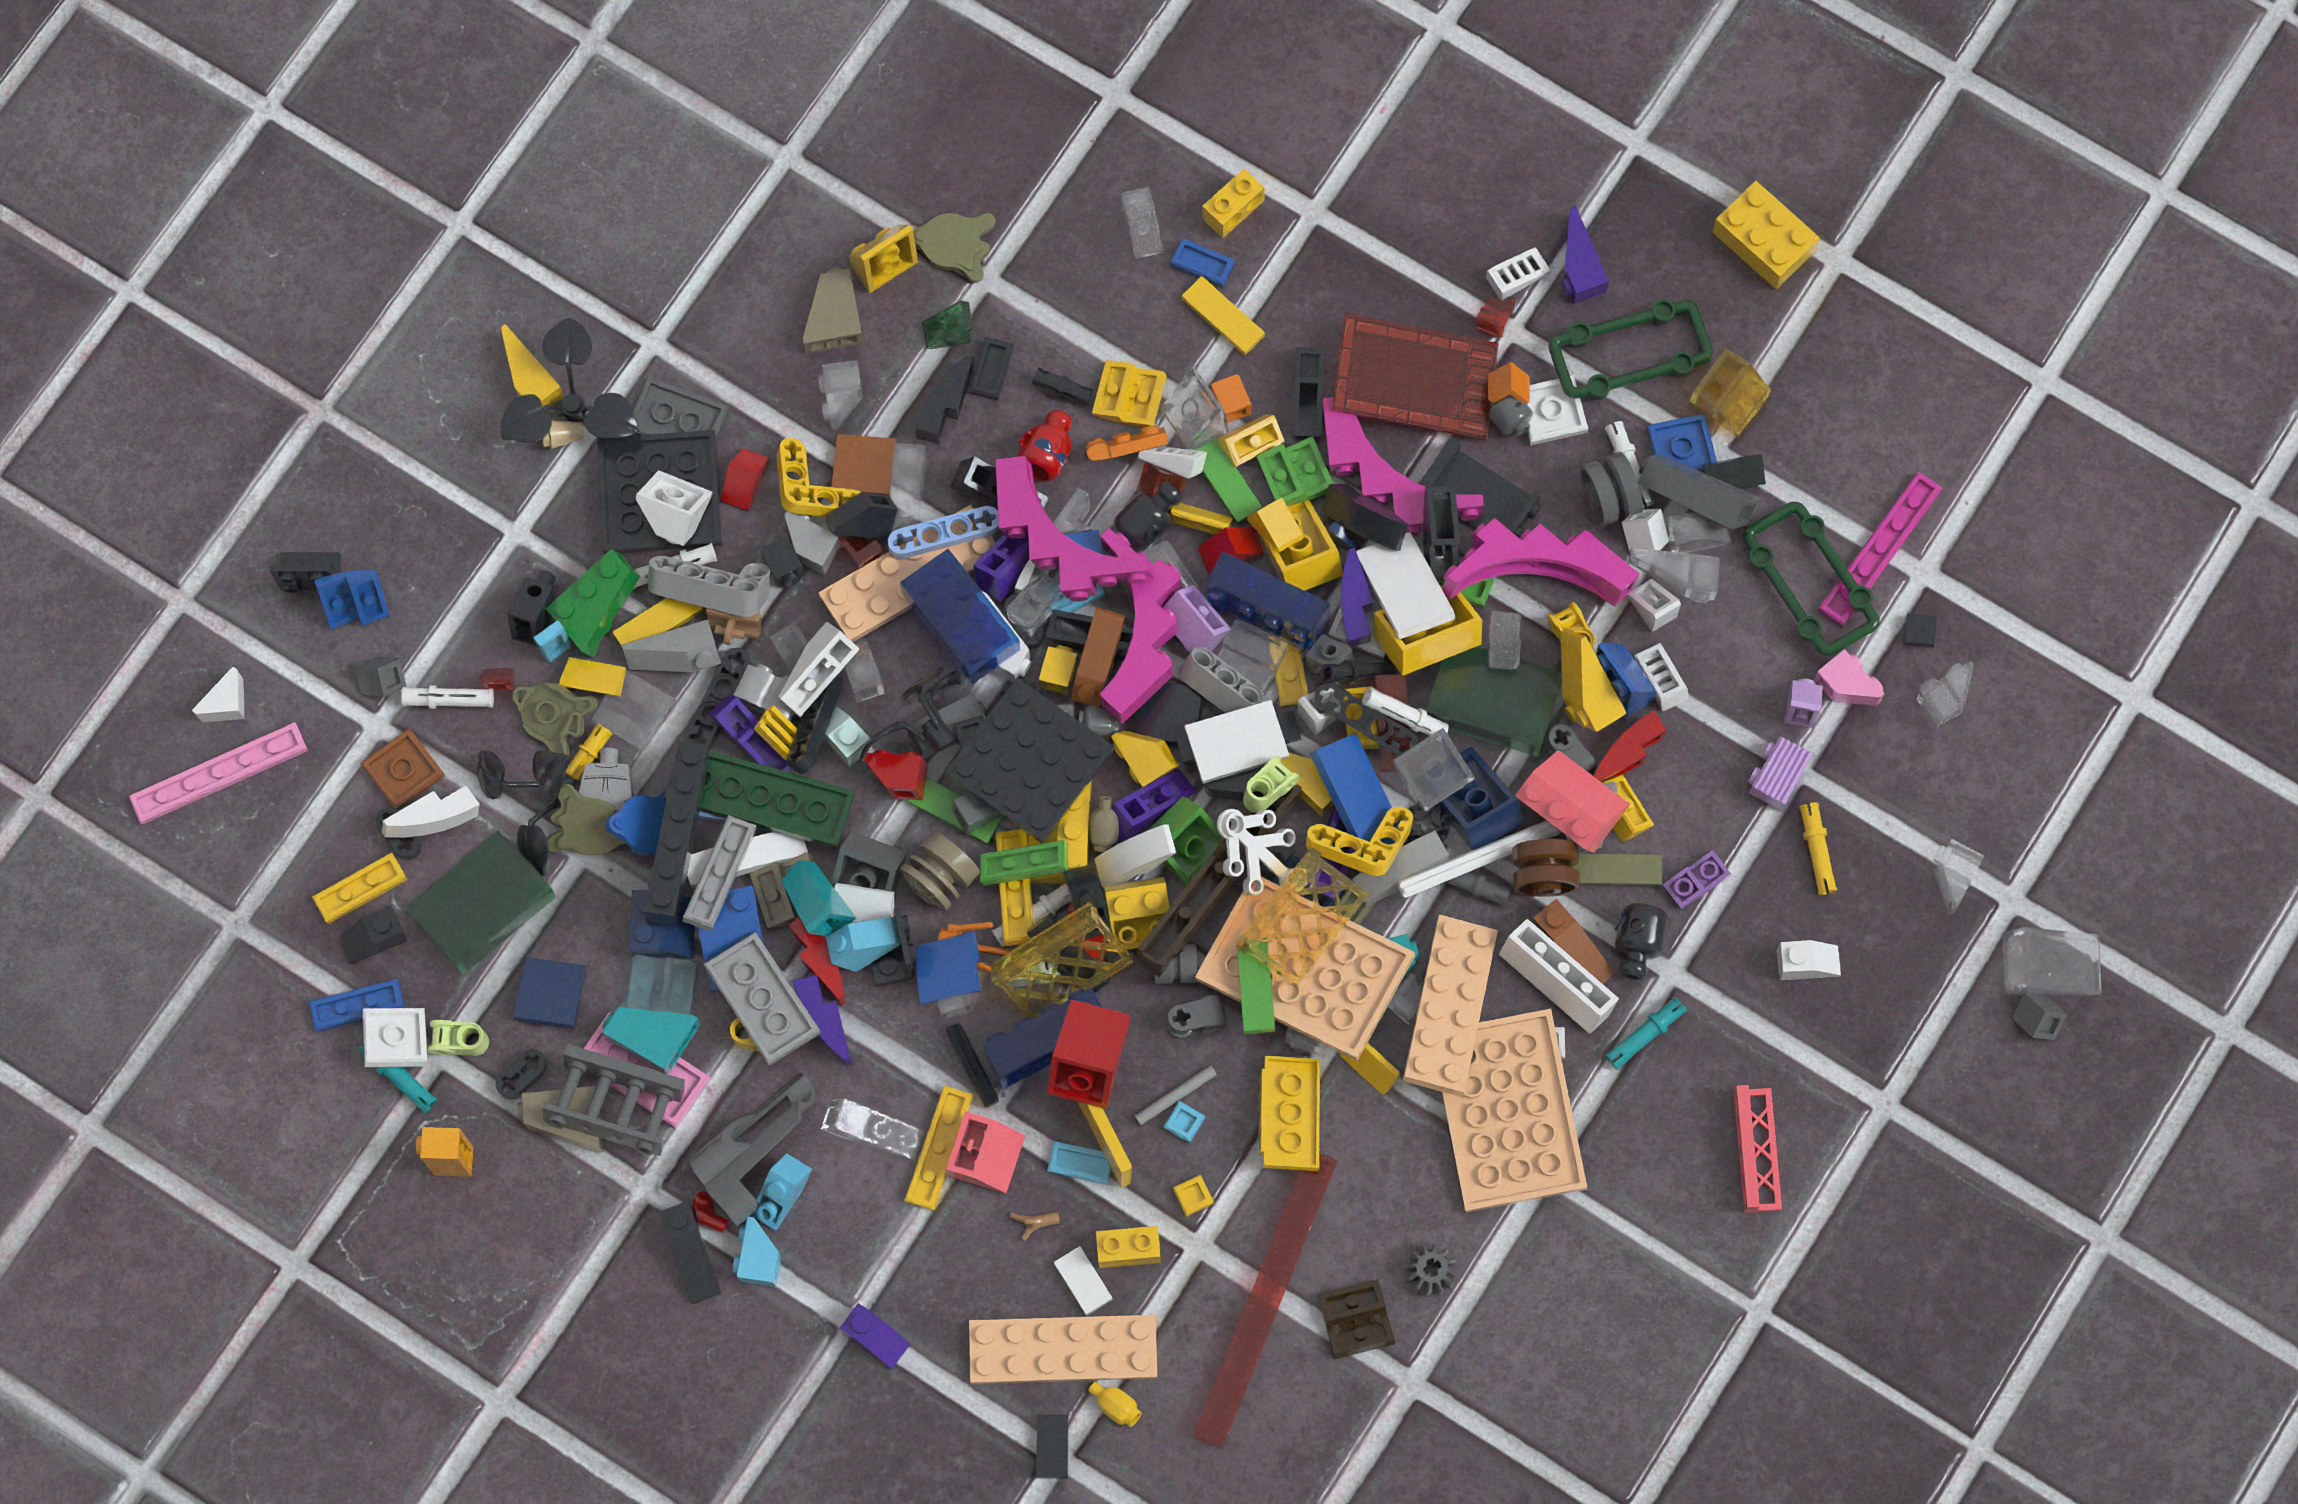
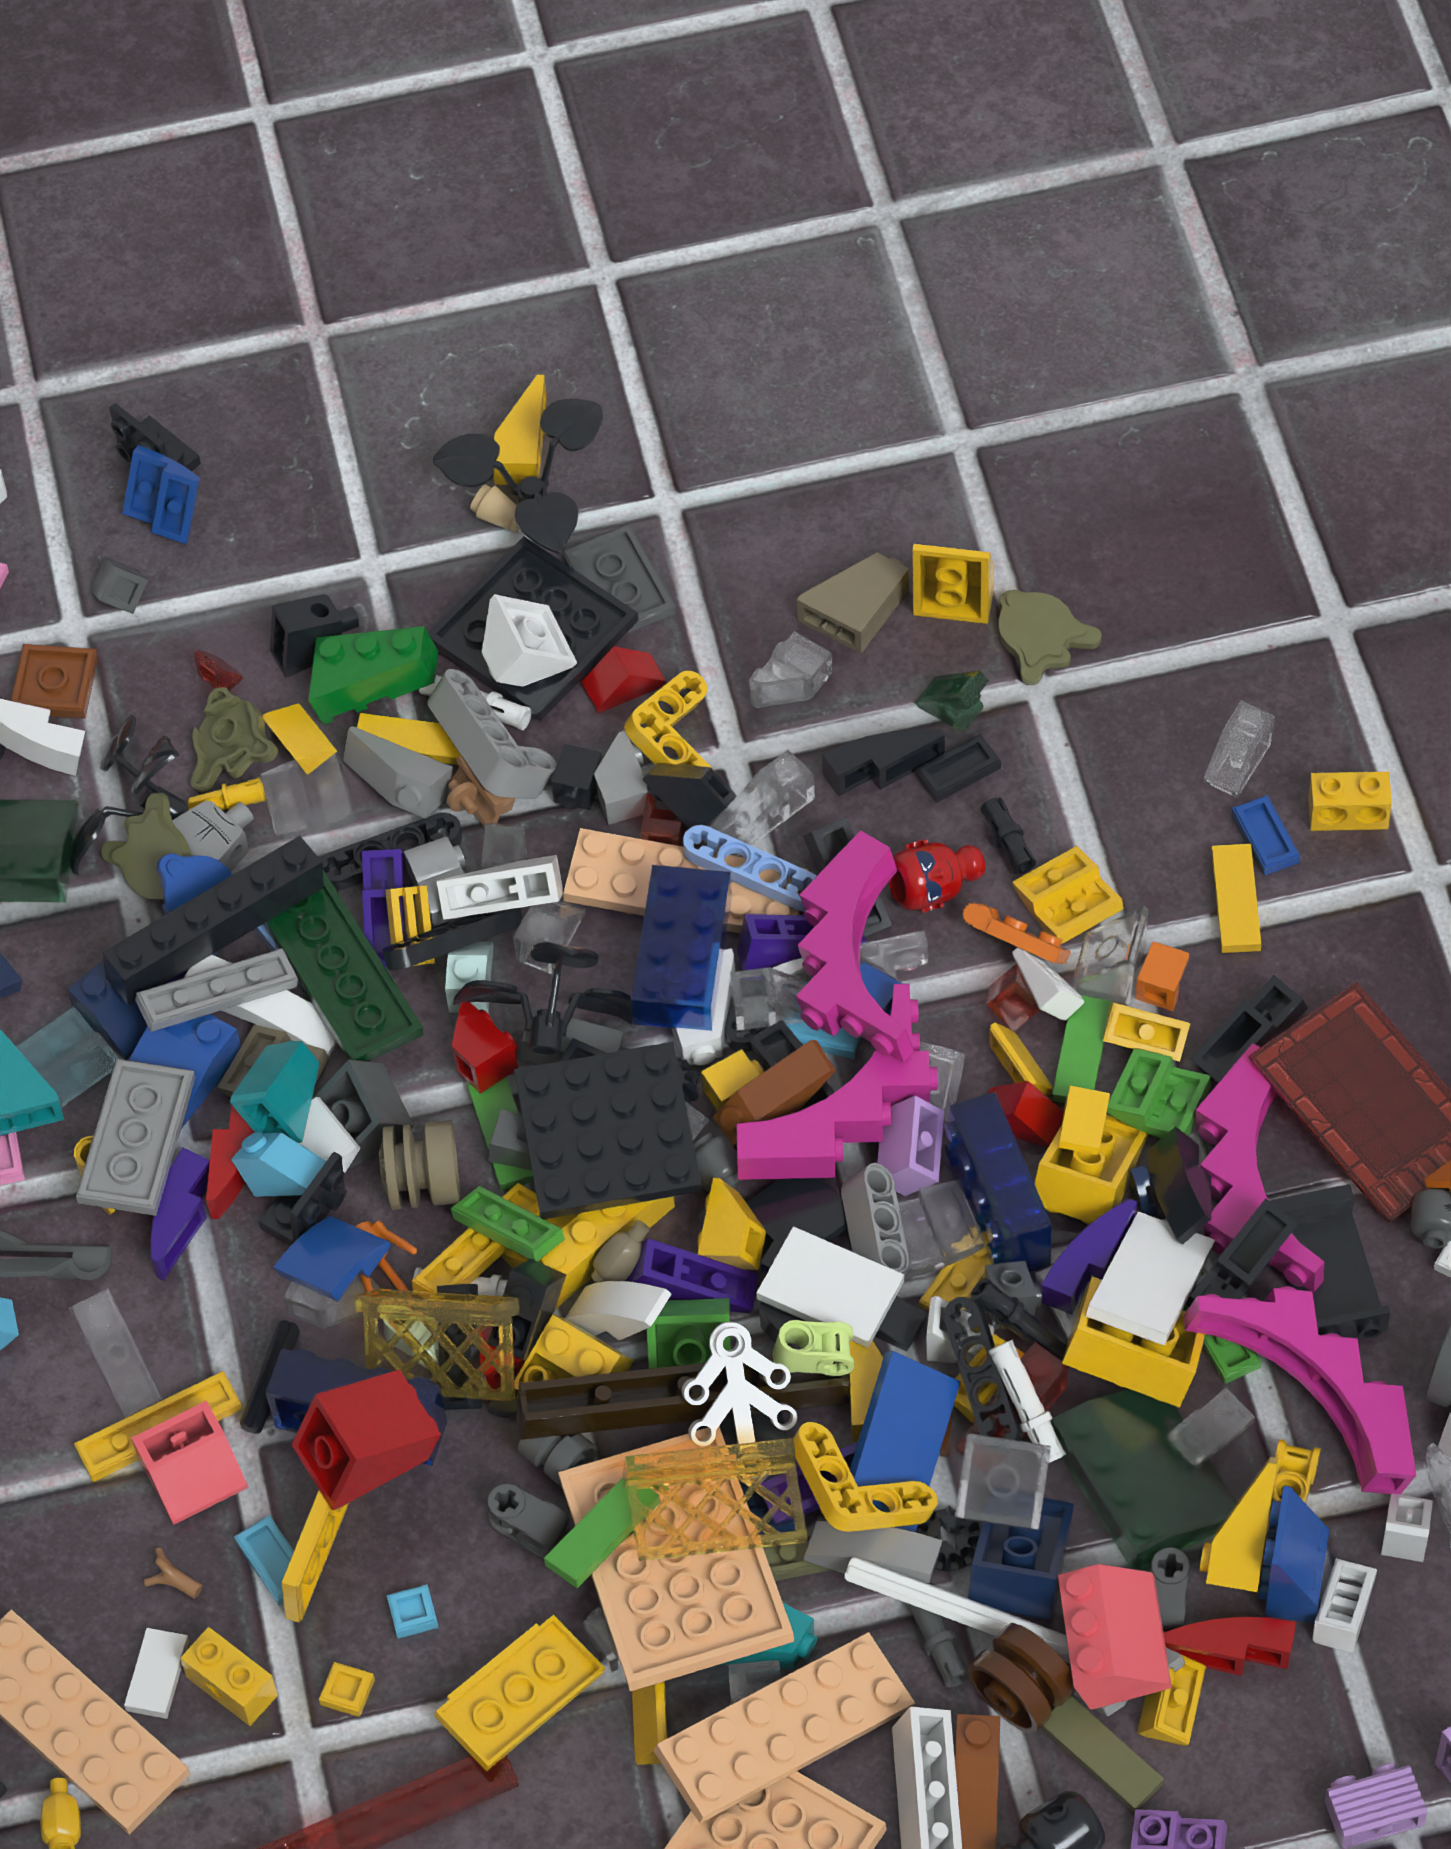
camera: 45 degrees right, 15 degrees down
(447, 697) = (146, 641): white pin -> none
(553, 641) = (291, 670): medium azure tile -> none
(863, 463) = (742, 749): dark orange tile -> none
(1147, 516) = (963, 1012): black piece -> none
(1175, 1095) = (431, 1577): light grey bar -> none

